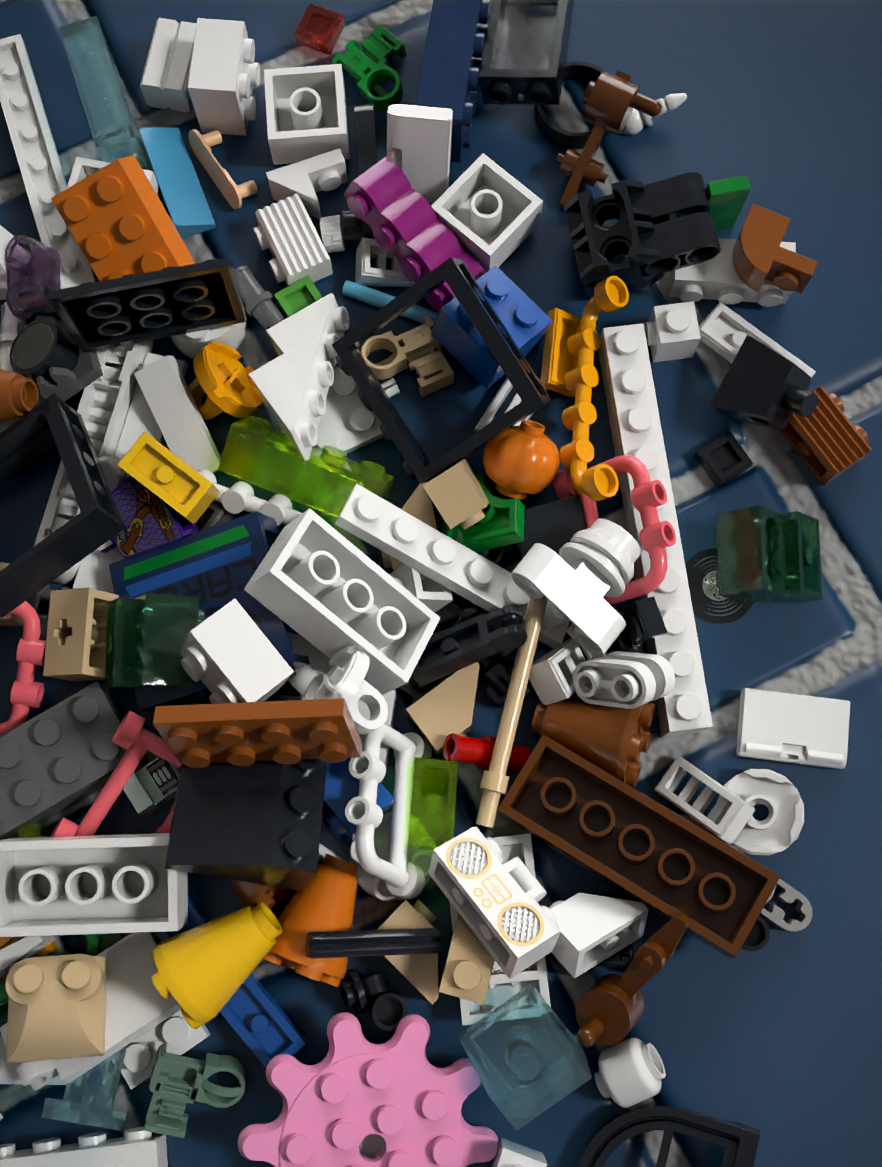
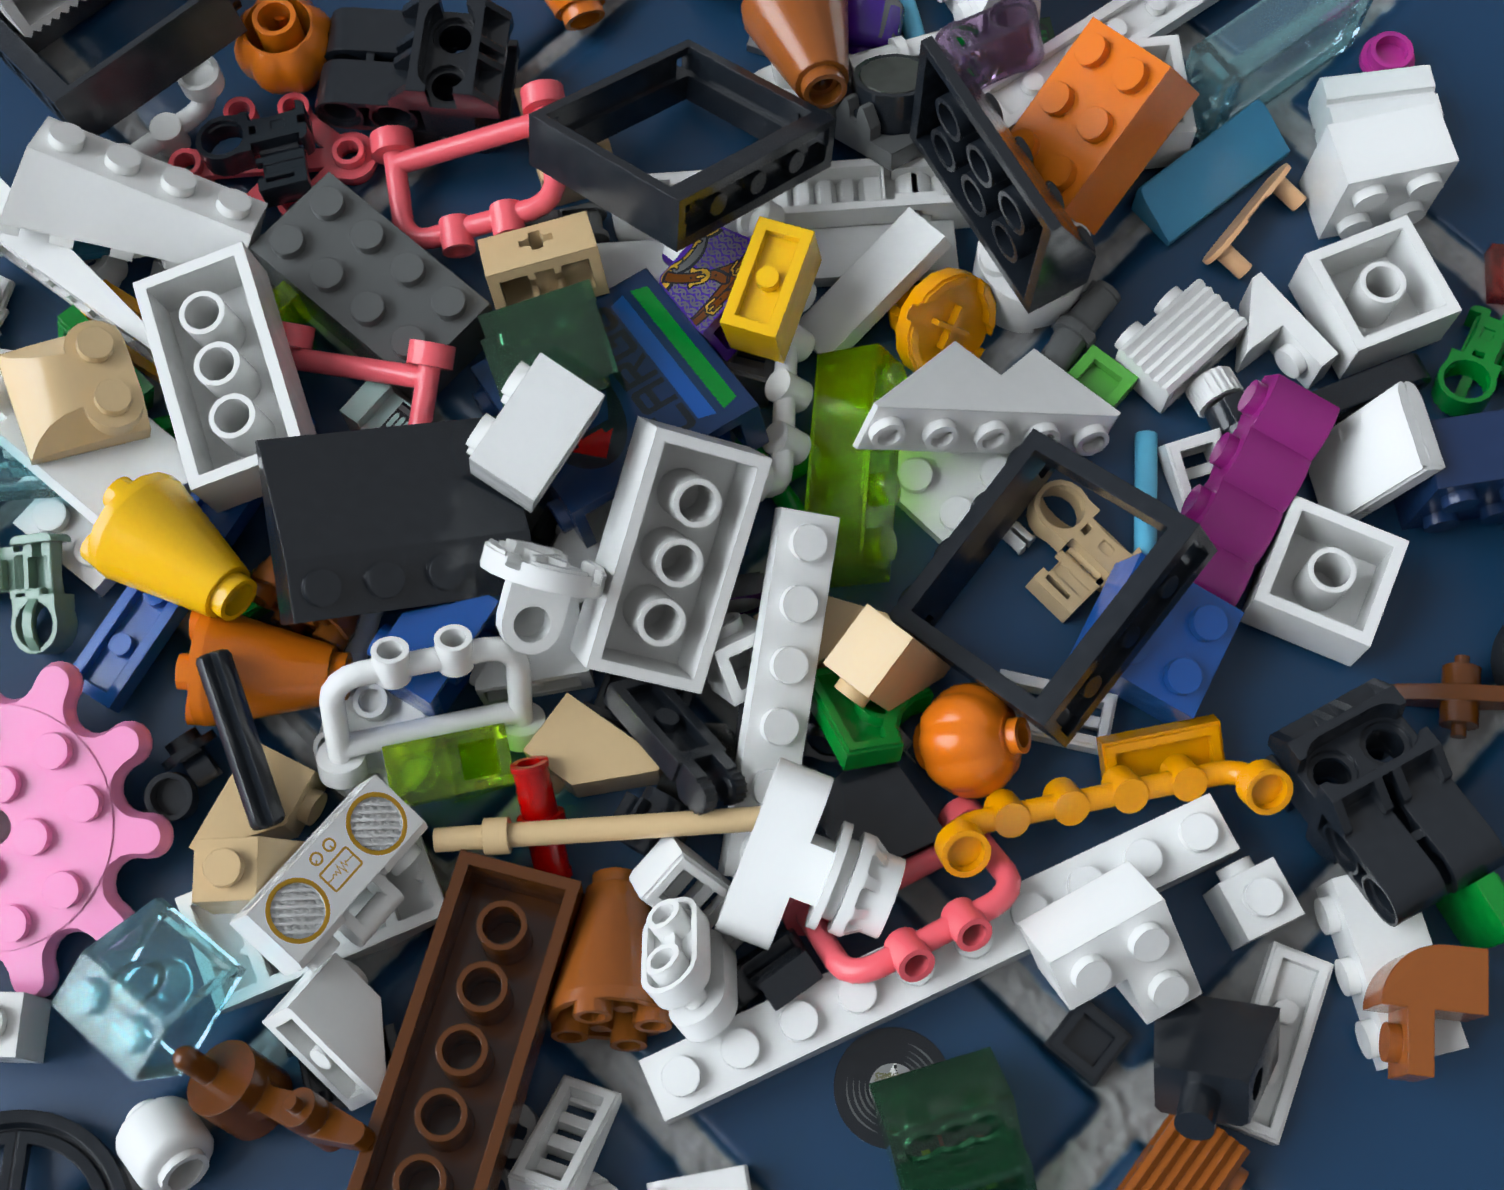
camera: 75 degrees right, 5 degrees down
(135, 43) = (1386, 52): none -> dark pink plate
(259, 732) = (448, 486): dark orange plate -> none
(682, 415) = (1110, 937): none -> white brick

